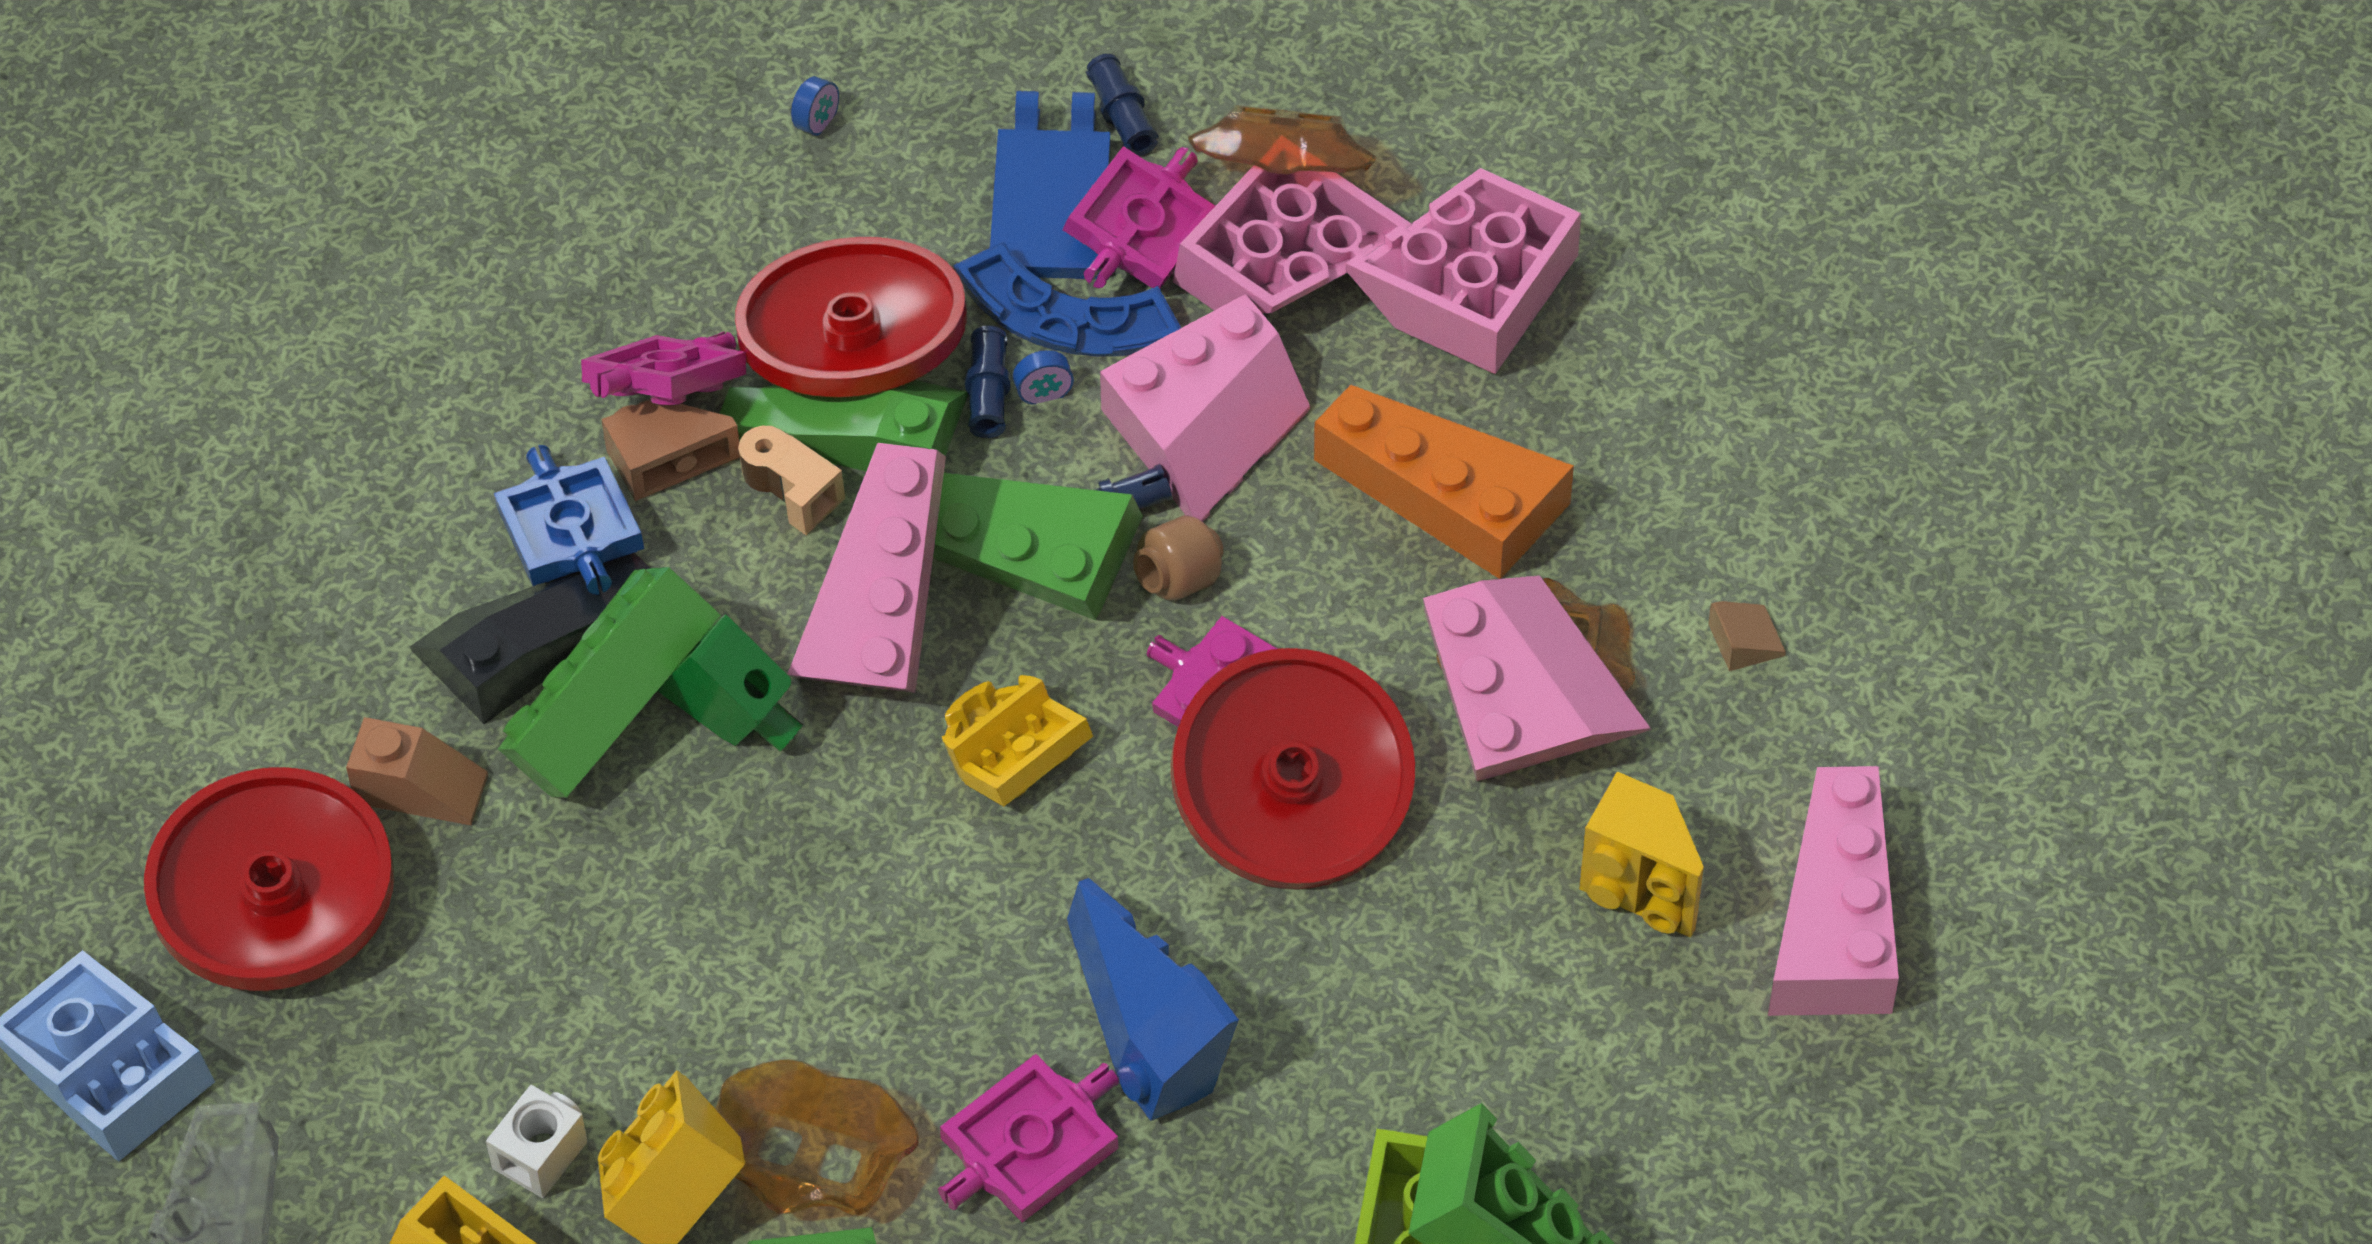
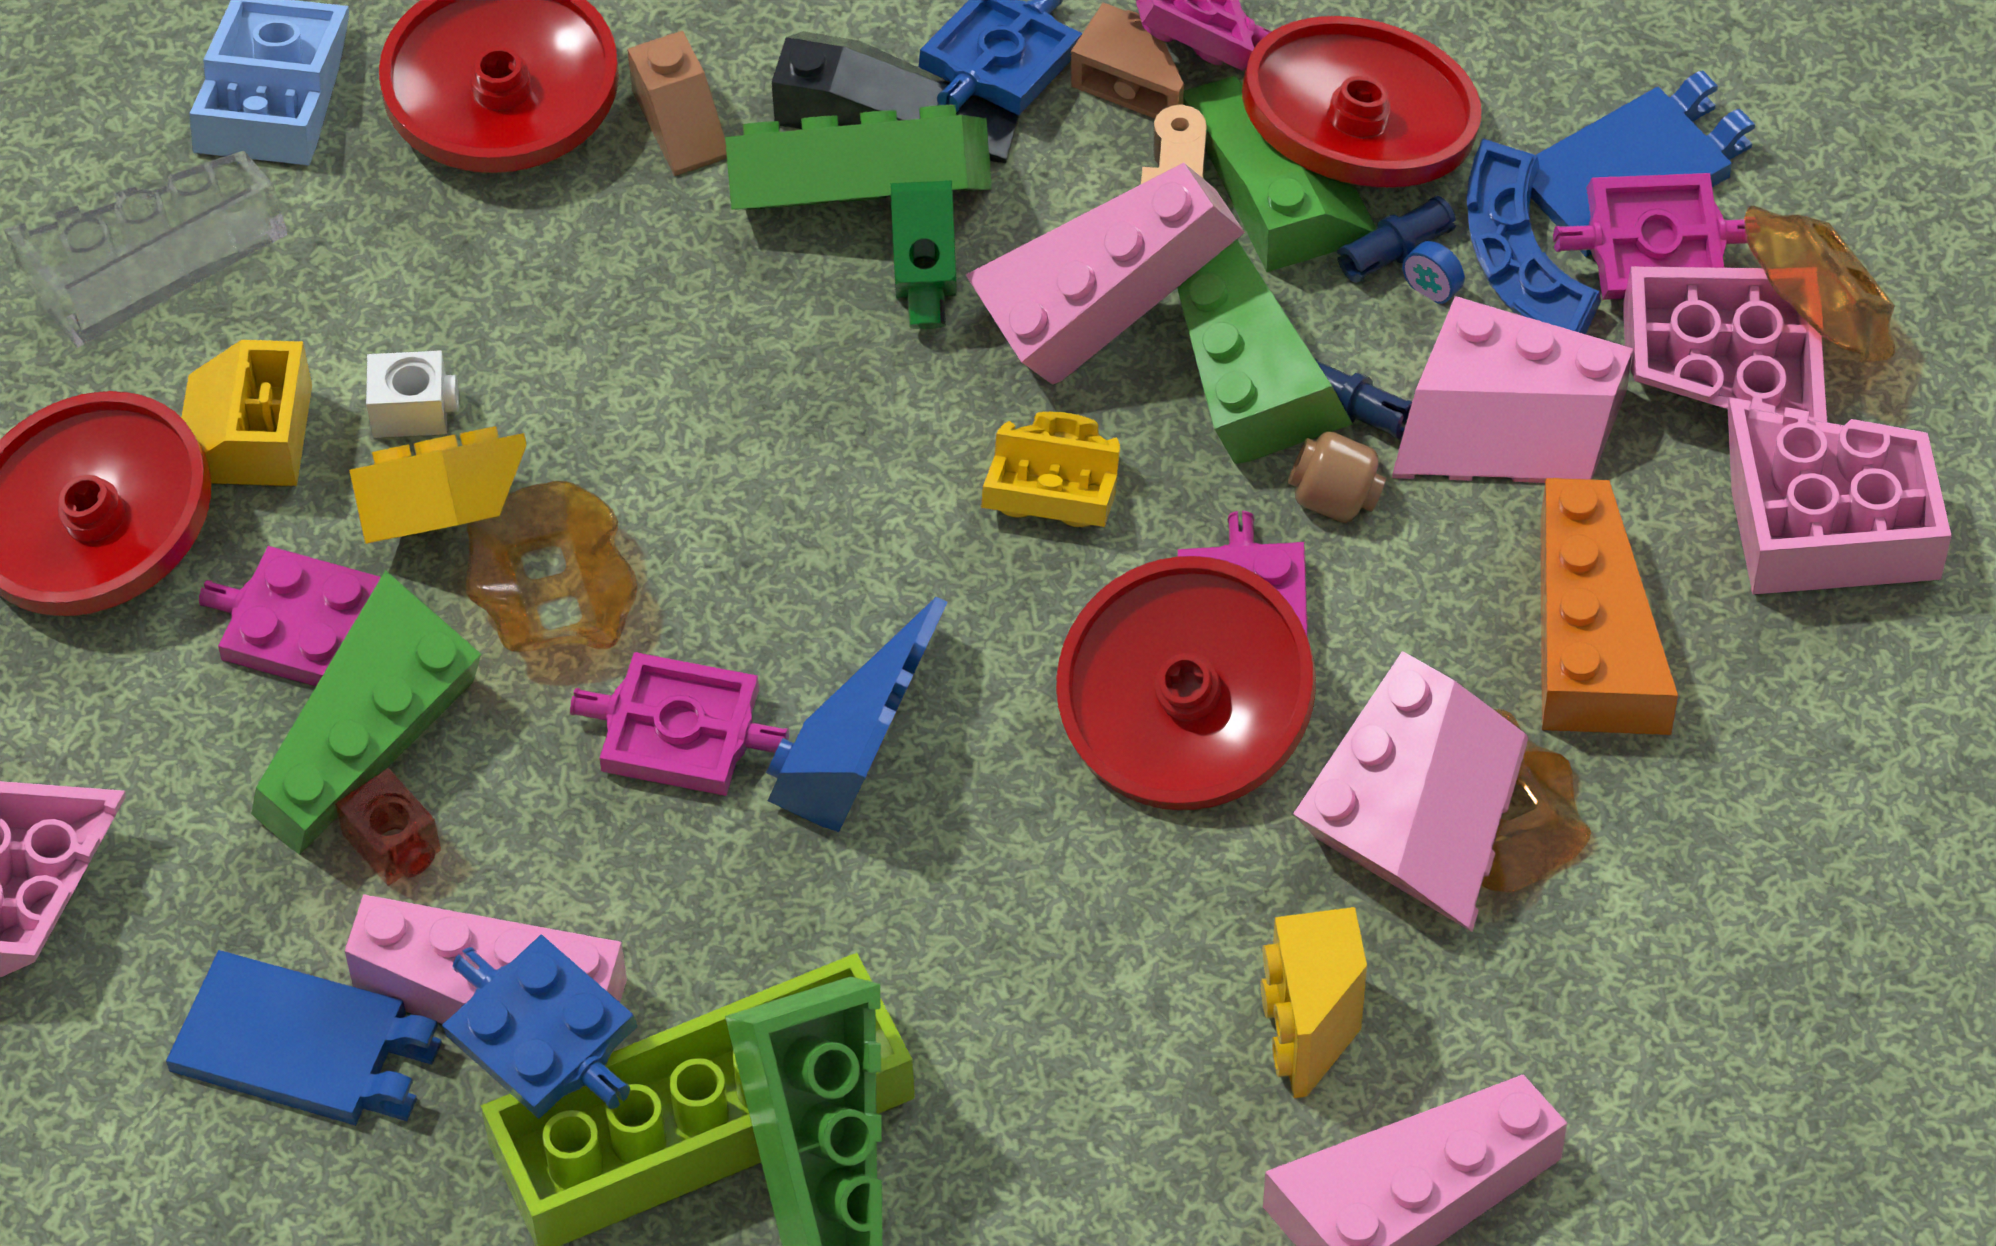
camera: 55 degrees right, 0 degrees up
(1122, 104) = (1770, 155): dark blue pin -> none
(1744, 634) = (1647, 947): medium nougat slope -> none

